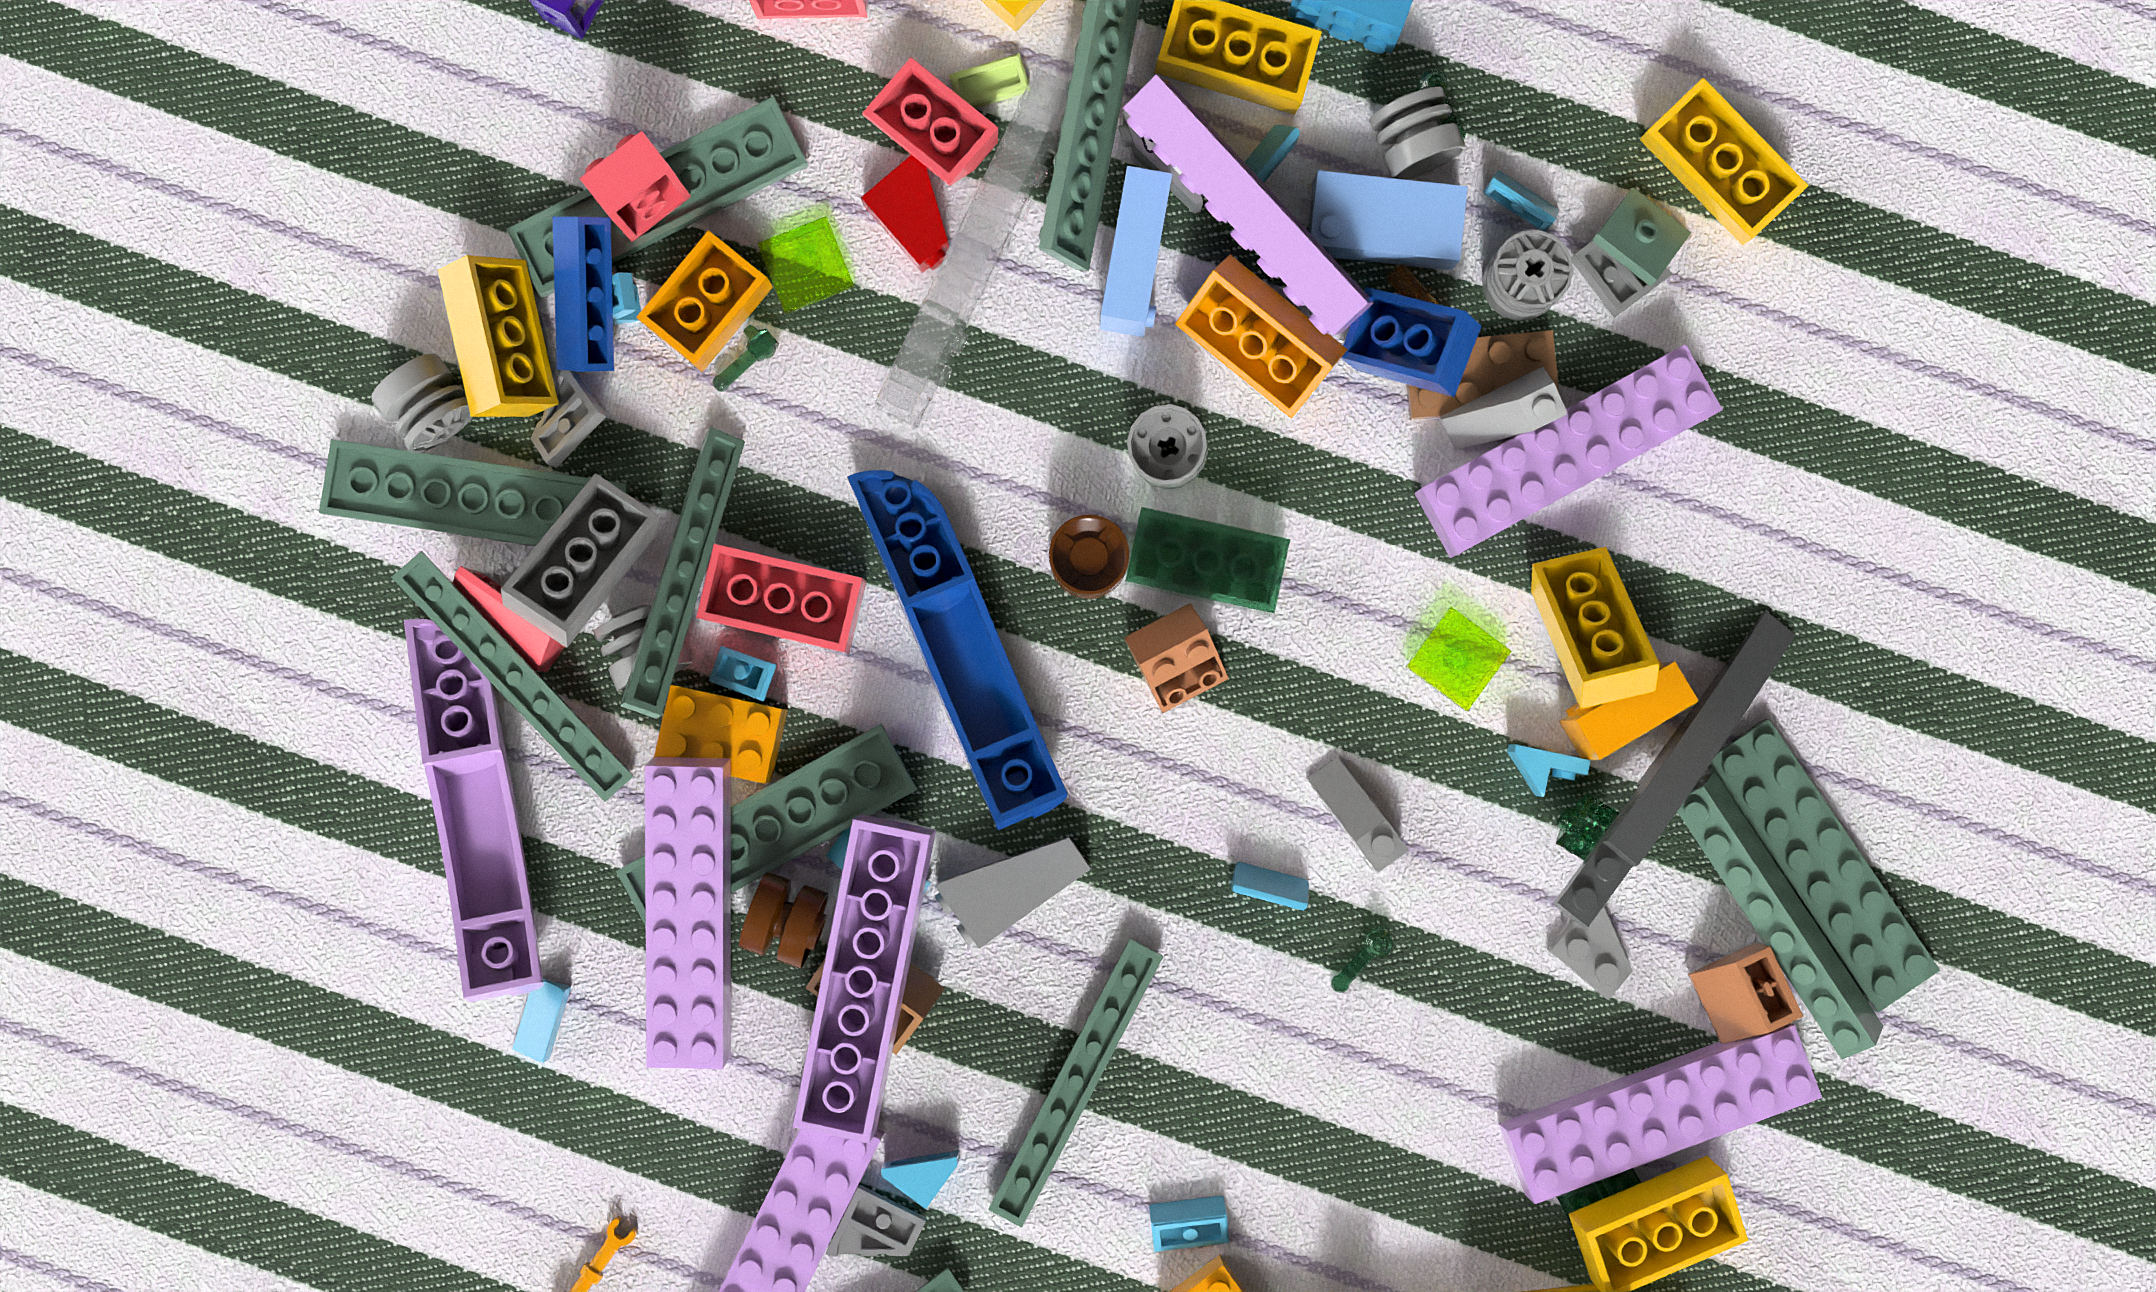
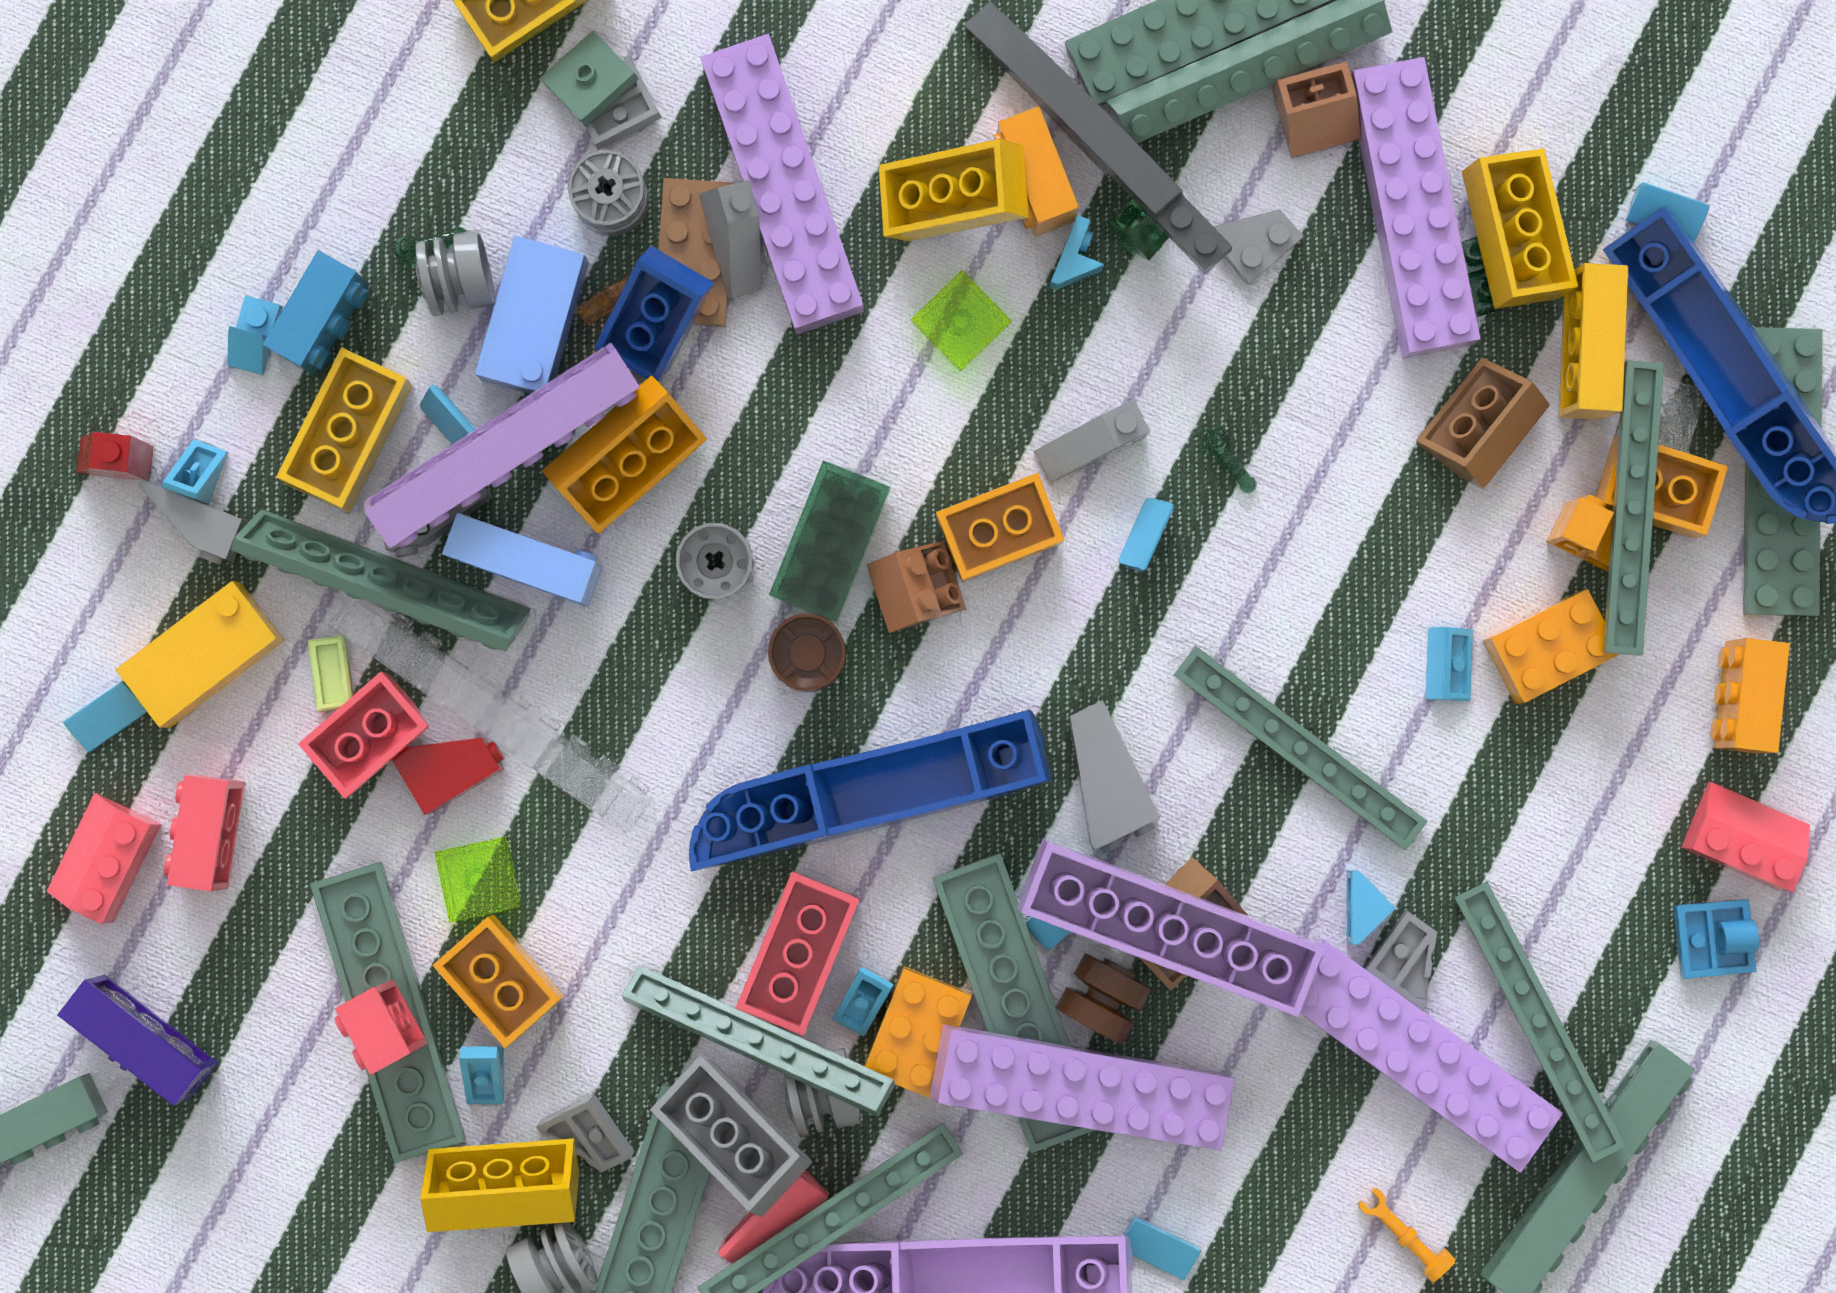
camera: 85 degrees left, 0 degrees up
(583, 293) = (472, 1096): blue brick -> none
(759, 346) = (550, 936): clear green piece -> none
(1251, 733) = (999, 527): none -> light orange brick
(1447, 1220) = (1483, 422): none -> medium nougat slope
(1521, 201) = (534, 184): medium azure slope -> none

